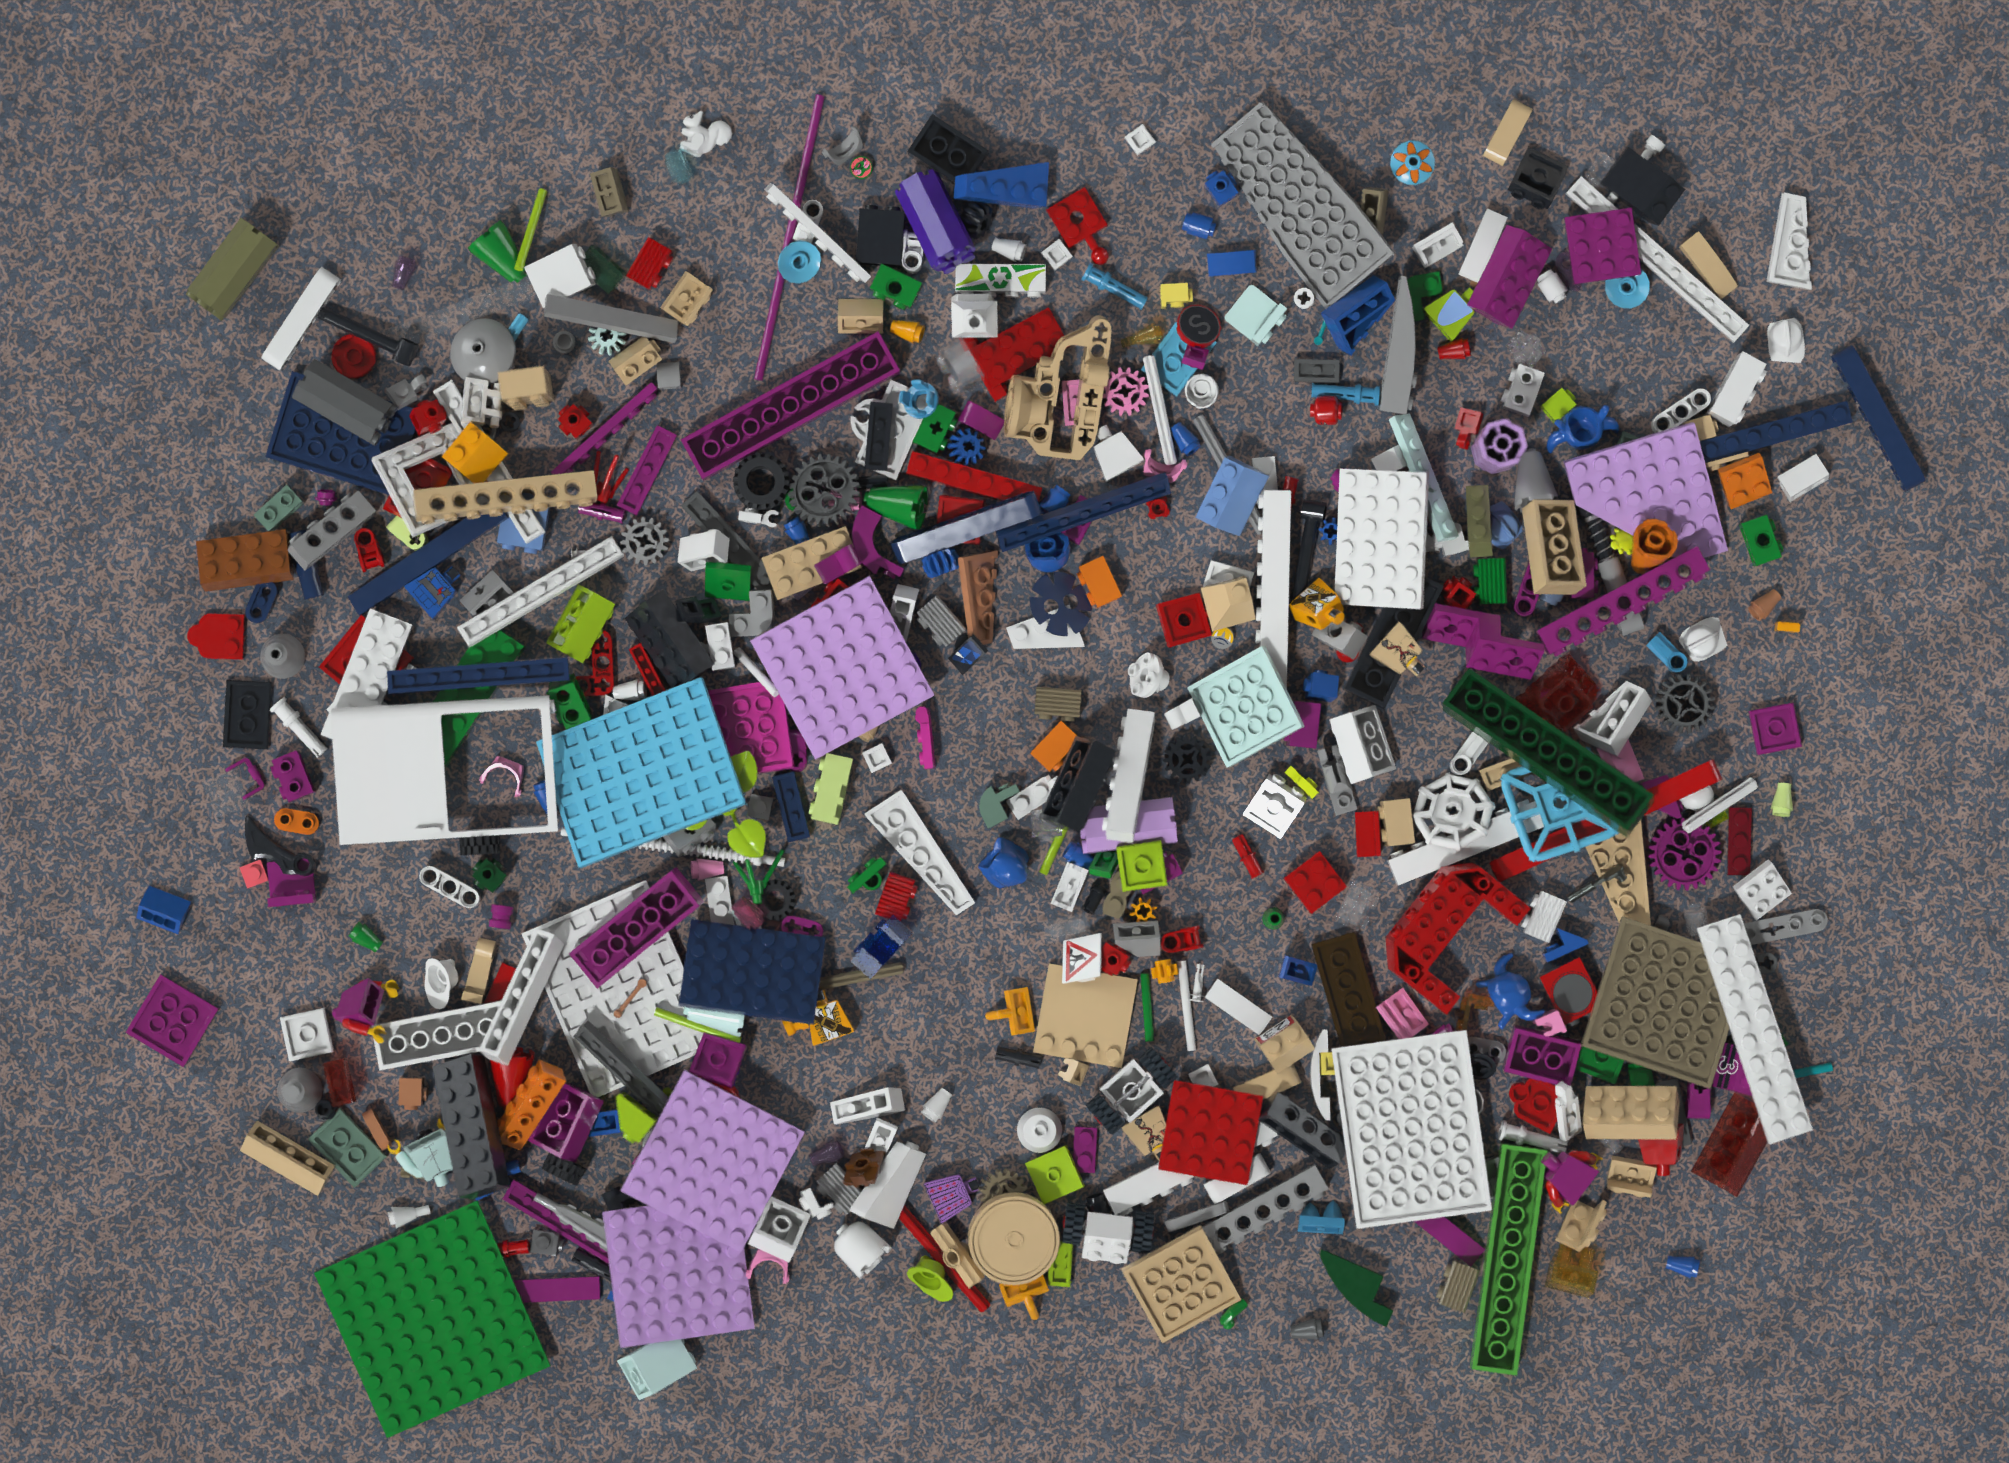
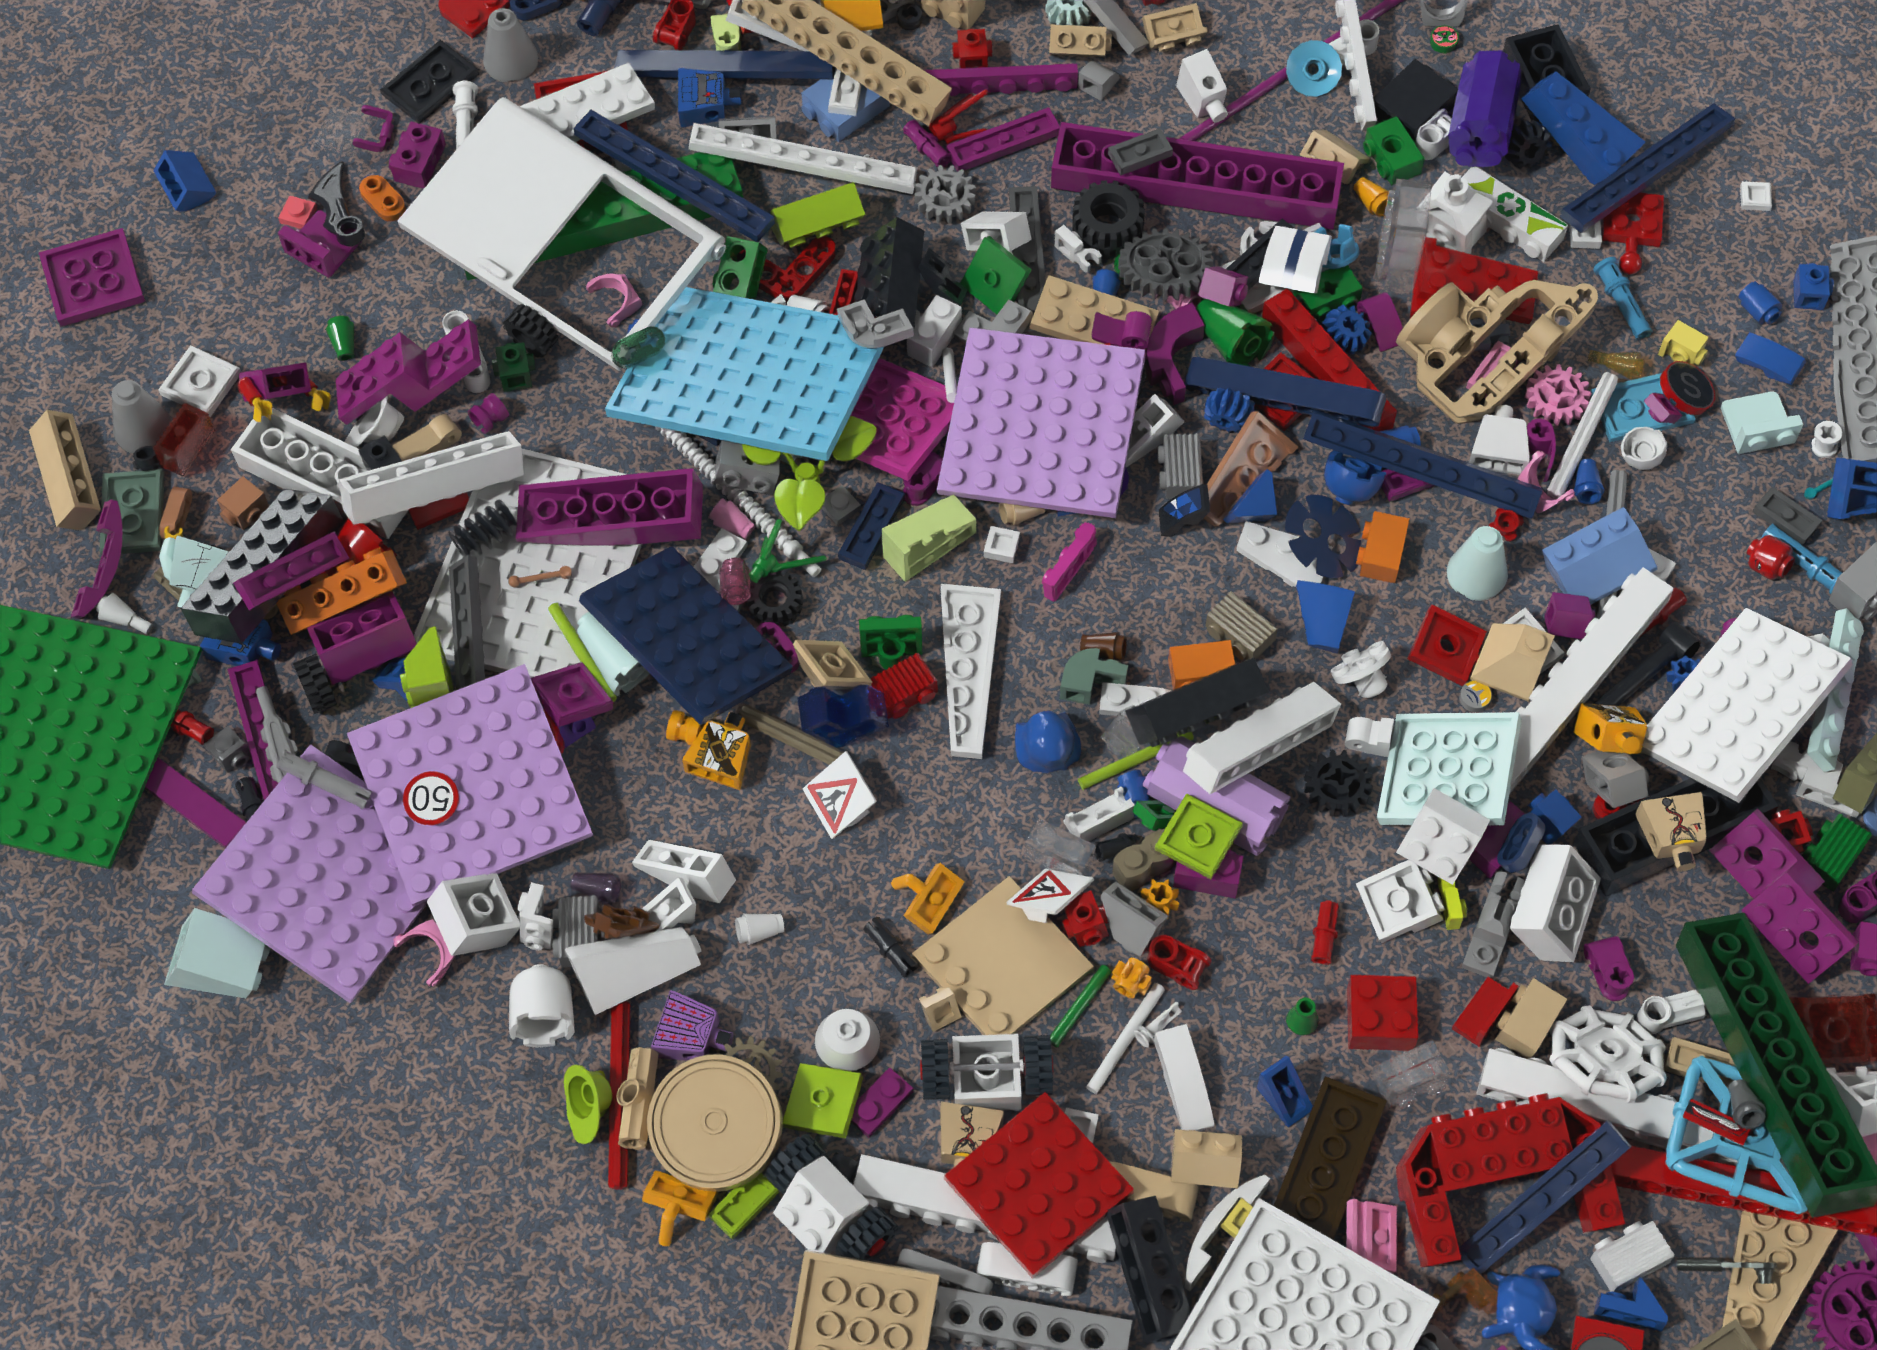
camera: 40 degrees right, 25 degrees down
(379, 1221) = (110, 524): none -> magenta slope
(434, 934) = (407, 371): none -> magenta bracket
(481, 1010) = (378, 454): none -> black brick
(500, 1123) = (291, 570): none -> magenta plate
(557, 809) = (641, 353): none -> clear green beam
(575, 998) = (483, 529): none -> black piece
(624, 1230) = (315, 775): none -> light grey pin
(695, 695) = (871, 331): none -> light grey plate
(701, 1189) = (430, 798): none -> sticker
(735, 332) = (1202, 86): none -> white torso
(750, 427) = (1140, 151): none -> dark grey plate
(852, 923) = (830, 664): none -> tan slope
(874, 482) = (1223, 286): none -> brick
(905, 432) = (1295, 259): none -> white slope
(916, 993) = (840, 795): none -> white piece
(989, 776) = (1111, 644): none -> reddish brown cone
(1003, 614) = (1256, 503): none -> blue slope
(1010, 249) = (1540, 195): white cone -> none
(1063, 178) = (1647, 168): none -> dark blue plate
(1099, 656) = (1324, 613): none -> blue slope
(1143, 432) = (1542, 438): none -> magenta panel
(1164, 552) = (1479, 565): none -> light aqua cone
(1240, 546) = (1568, 615): none -> magenta brick
(1275, 758) = (1443, 836): none -> white brick
(1320, 726) = (1521, 843): none -> dark blue plate
(1413, 750) = (1608, 963): none -> magenta piece
(1479, 931) = (1543, 1198): none -> dark blue plate
(1540, 814) = (1715, 1121): none -> sticker
(1549, 794) = (1745, 1105): none -> dark grey cone

